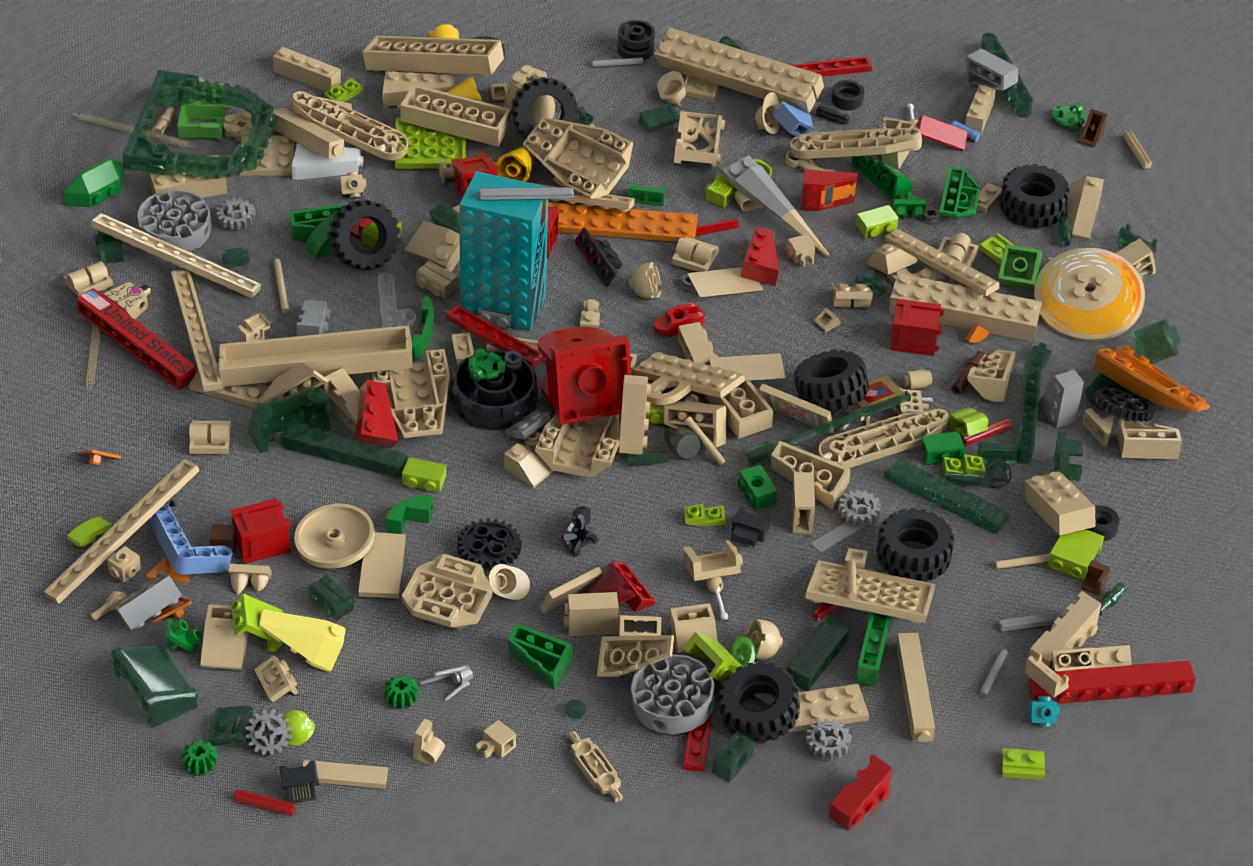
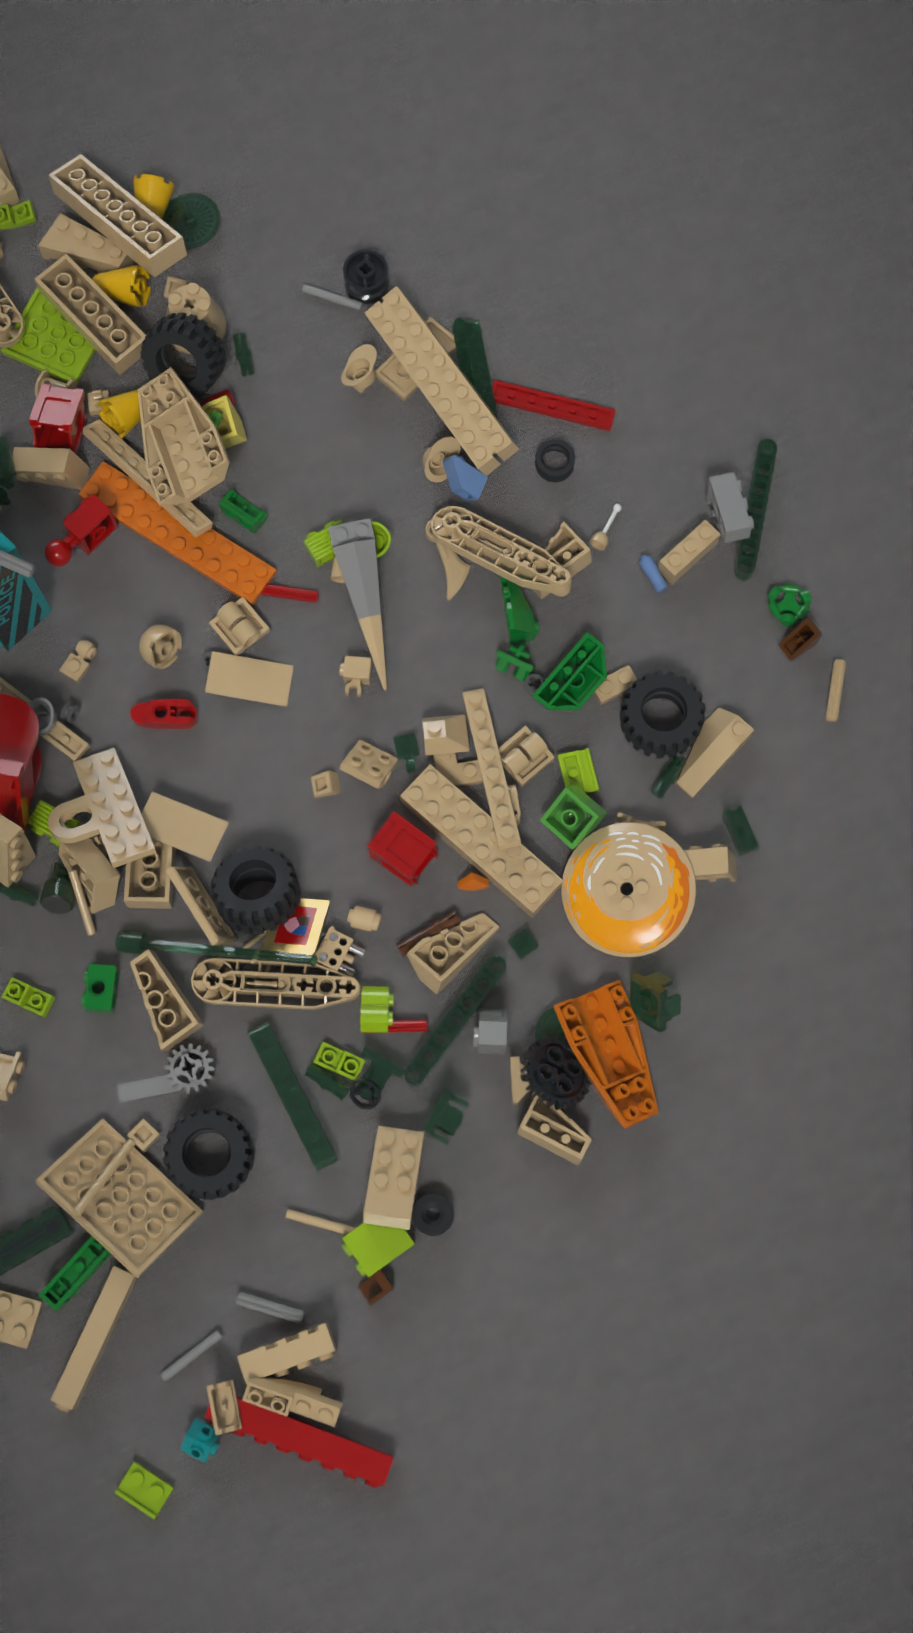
camera: 30 degrees right, 30 degrees up
(599, 255) = (140, 581): black bracket -> none
(659, 117) = (320, 405): clear green bracket -> none
(688, 152) = (310, 471): tan fence -> none
(695, 343) = (157, 764): tan brick -> none
(749, 528) = (58, 1040): black piece -> none
(761, 258) = (300, 667): red wedge -> none
(803, 502) = (127, 1039): tan brick -> none
(827, 189) = (430, 601): red slope -> none
(832, 114) = (520, 482): black axle -> none
(877, 221) = (465, 668): lime brick -> none
(942, 132) = (617, 572): slope -> none
(942, 445) = (328, 1028): green panel -> none
(1110, 598) = (373, 1322): clear green pin -> none

